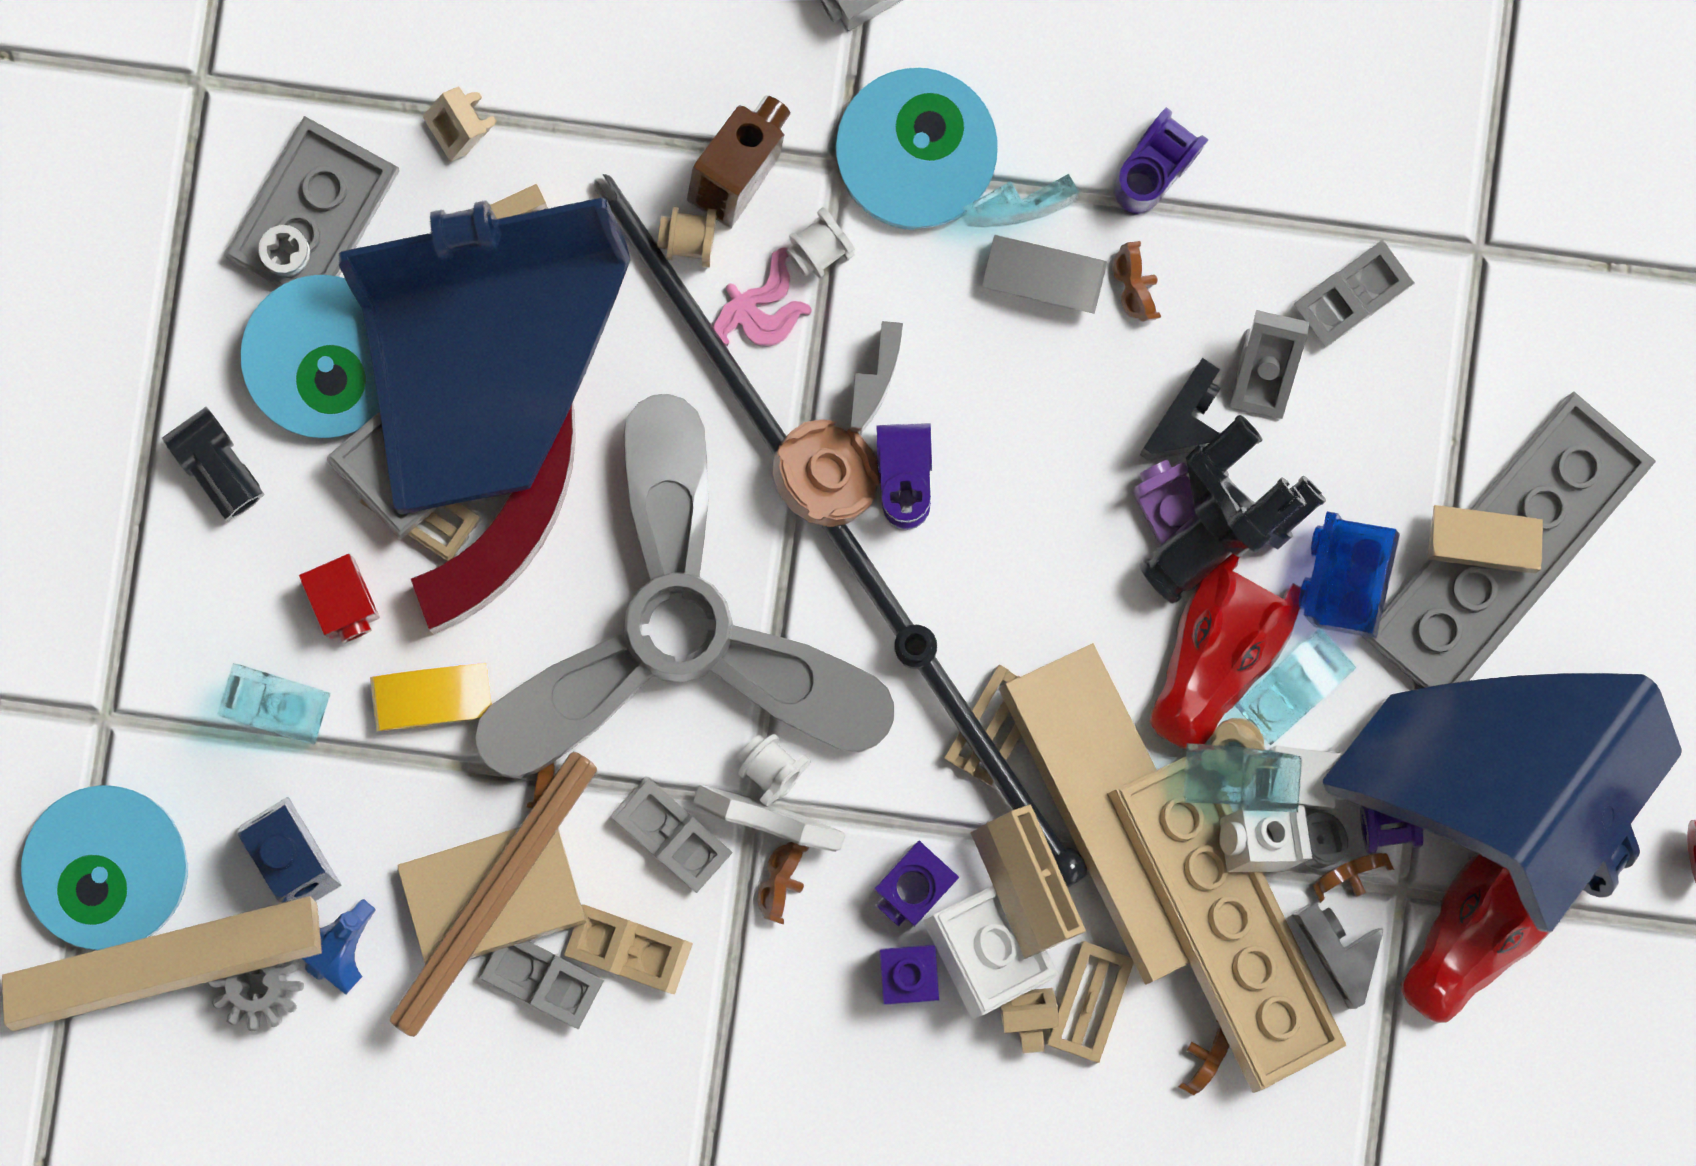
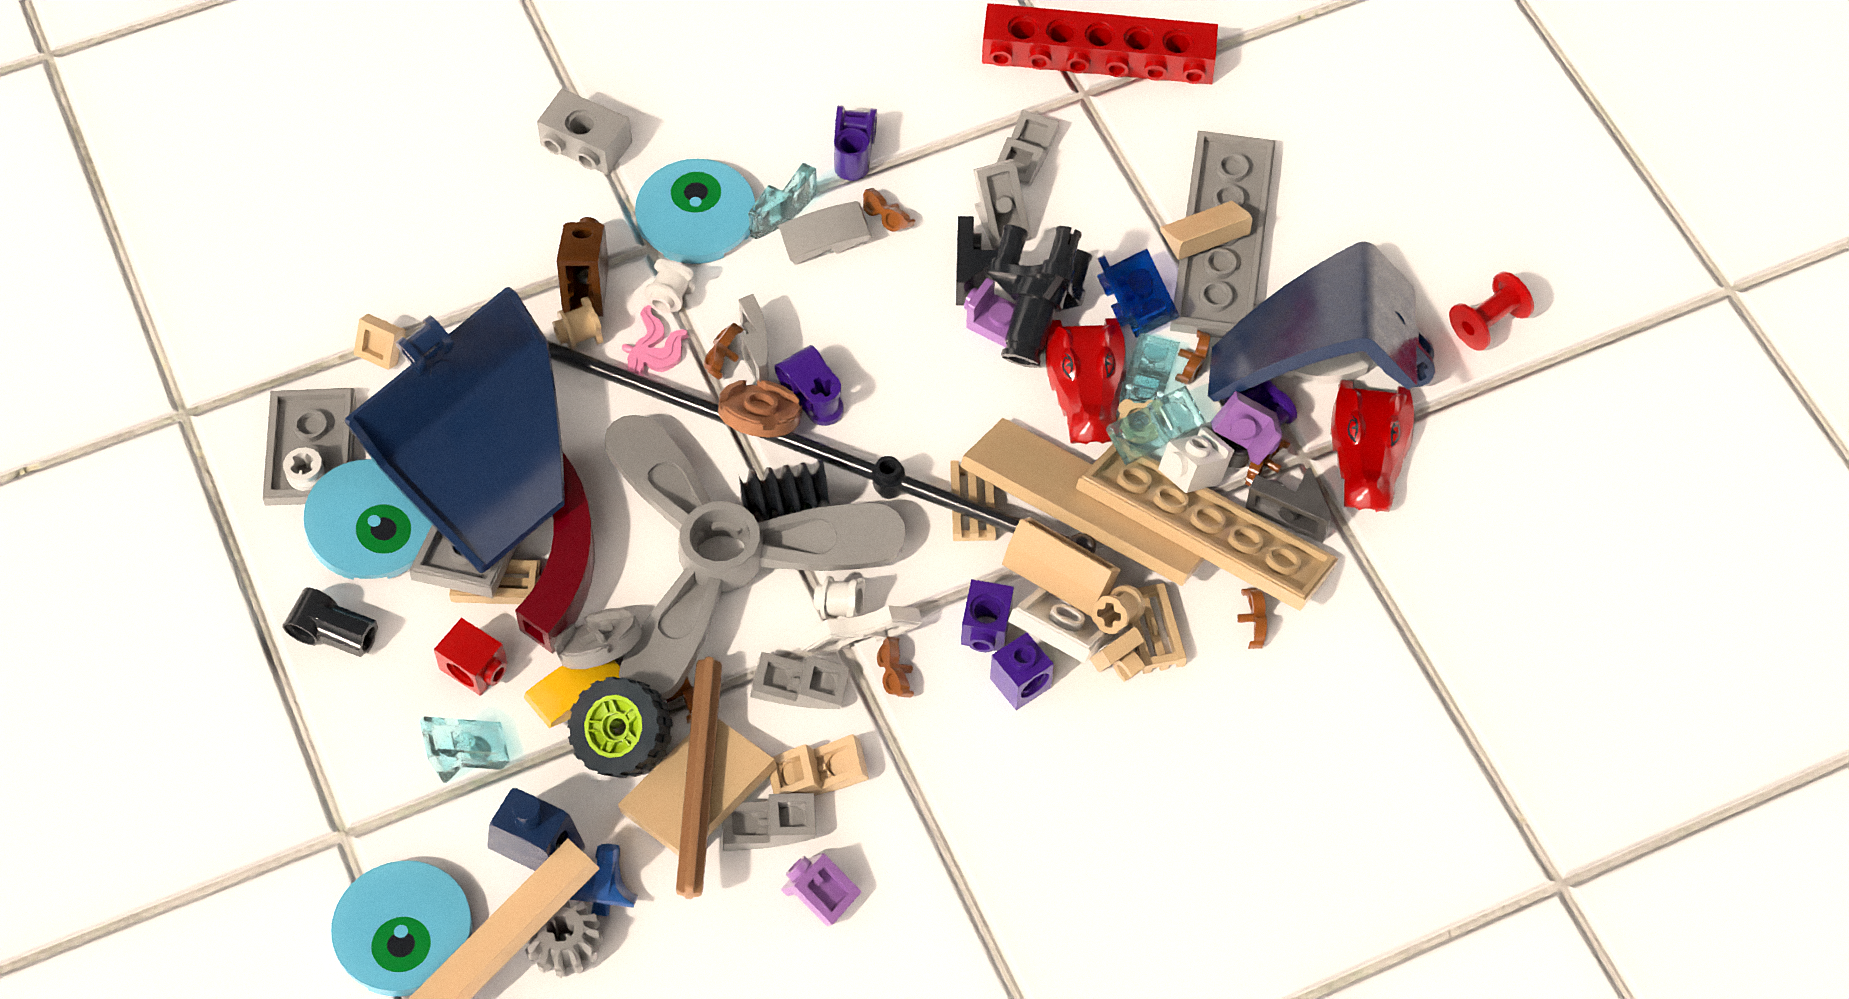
camera: 30 degrees left, 25 degrees down
(420, 801) = (602, 711): none -> black wheel
(481, 663) = (600, 640): none -> light grey tile
(548, 1088) = (821, 887): none -> medium lavender bracket
(787, 598) = (784, 491): none -> black piece
(822, 366) = (715, 357): none -> dark orange piece
(1054, 973) = (1118, 609): none -> tan bush
(1351, 841) = (1249, 426): none -> medium lavender bracket
(1365, 696) = (1196, 359): none -> dark orange piece
(1567, 202) = (1099, 43): none -> red brick

